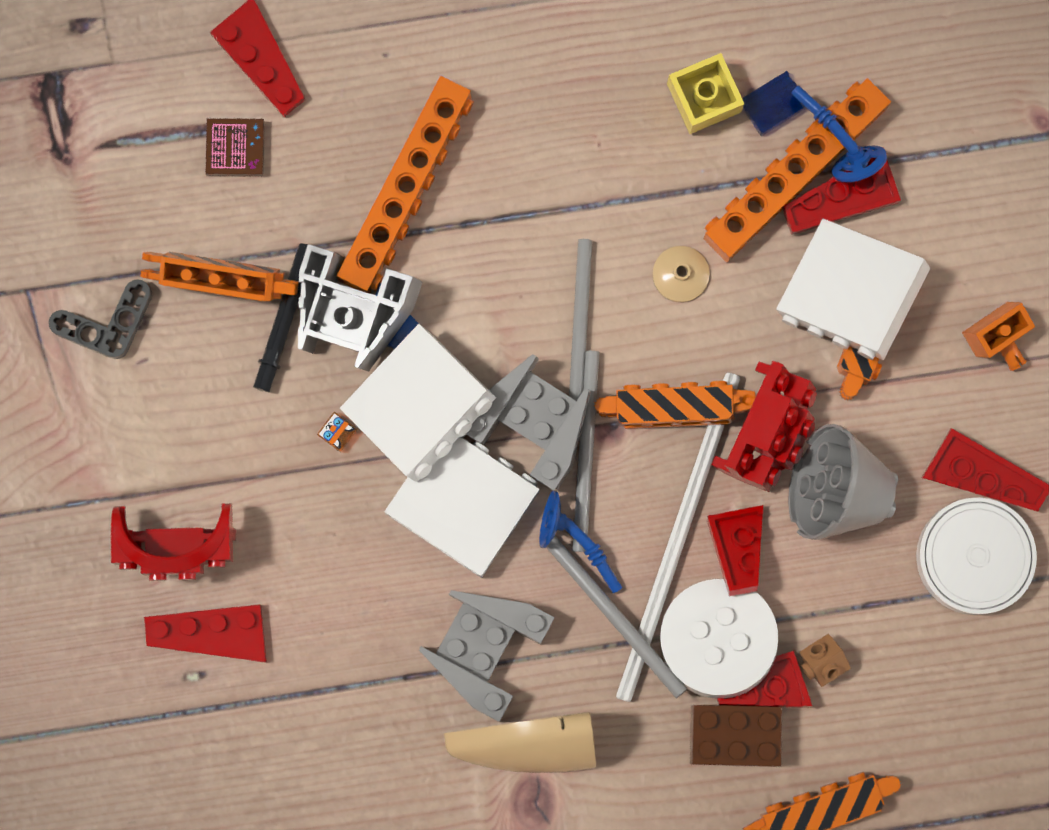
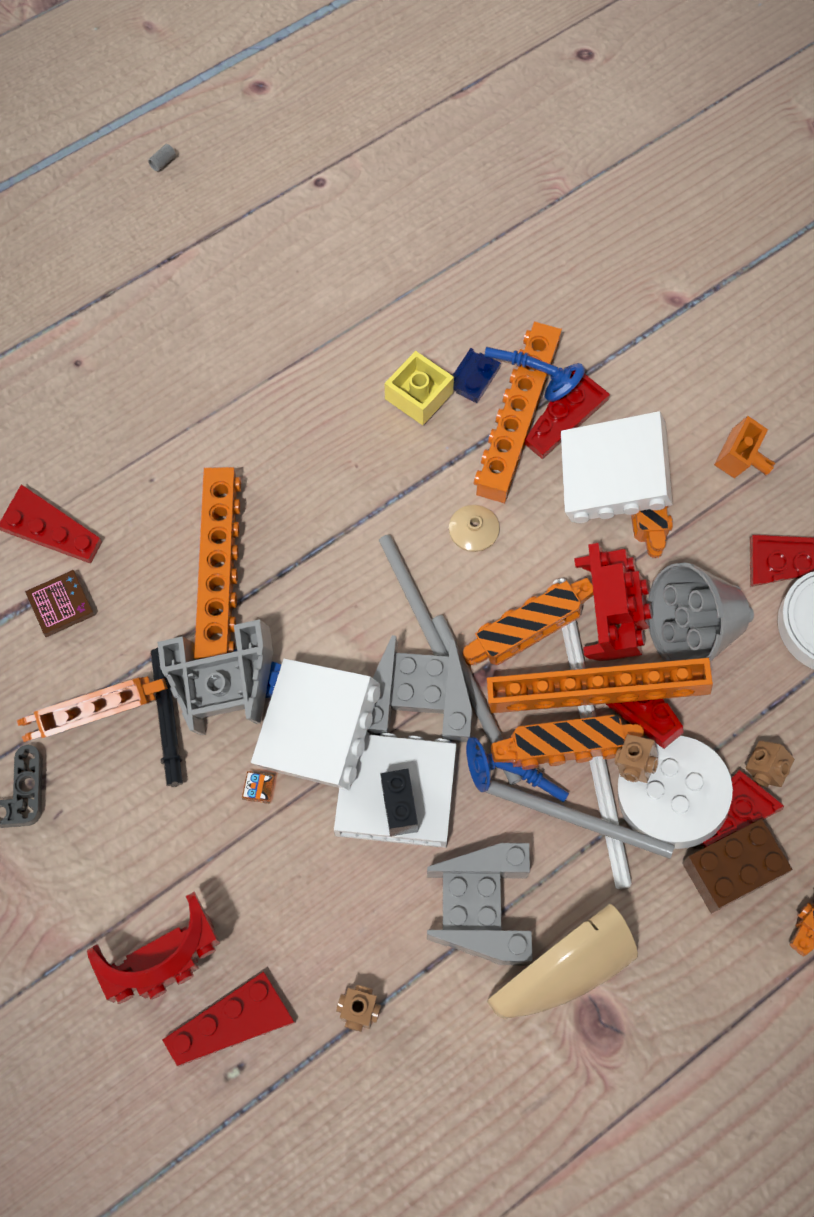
camera: 25 degrees left, 15 degrees down
(337, 685) = (369, 1014): none -> medium nougat brick
(454, 519) = (399, 802): none -> black brick
(642, 540) = (564, 741): none -> orange hinge
(696, 594) = (637, 759): none -> medium nougat brick
(703, 505) = (600, 685): none -> orange brick

